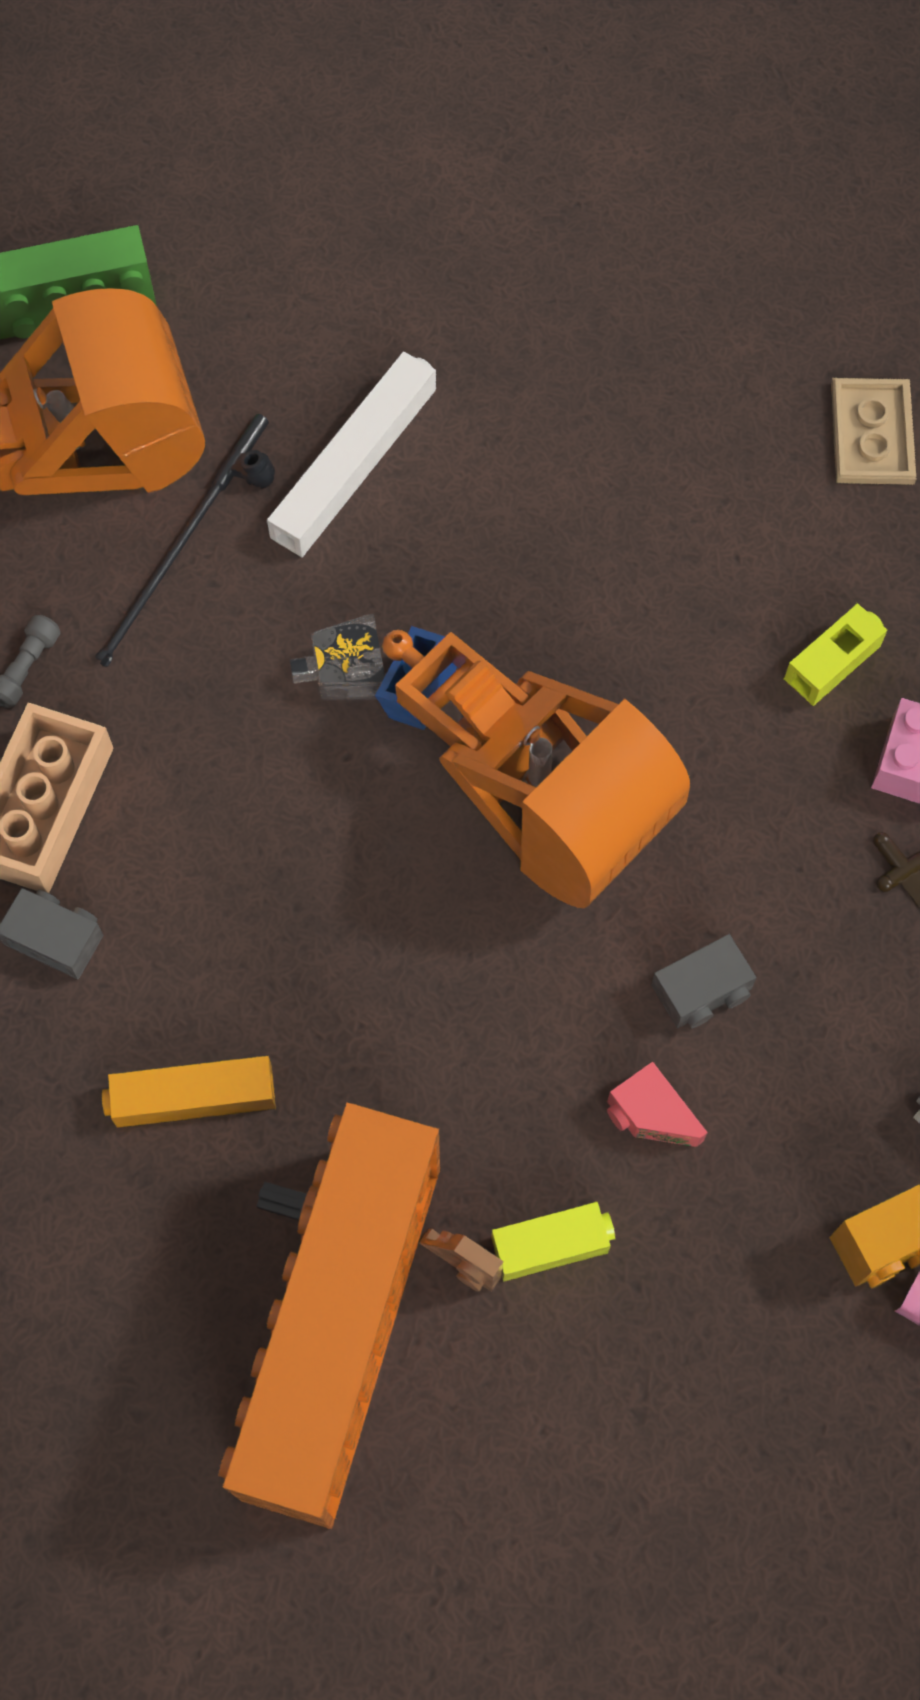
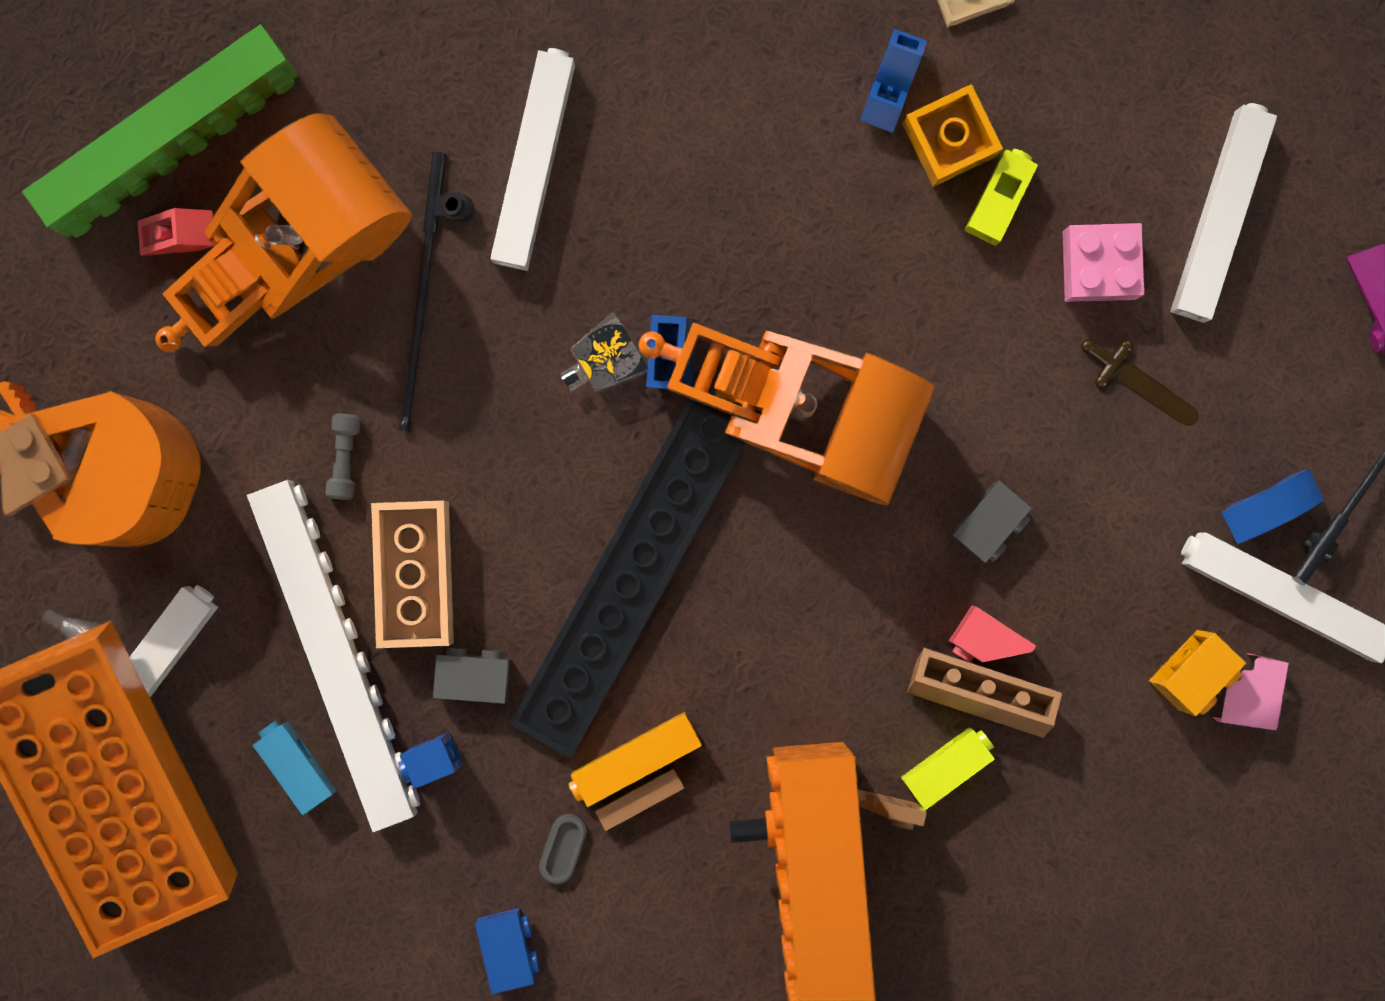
camera: 20 degrees left, 20 degrees up
(63, 1166) = (562, 848): none -> dark grey tile
(176, 1141) = (639, 798): none -> medium nougat piece
(269, 897) = (630, 577): none -> black plate
(626, 1166) = (984, 693): none -> medium nougat brick
(762, 506) = (893, 80): none -> blue brick
(803, 574) = (952, 135): none -> light orange brick

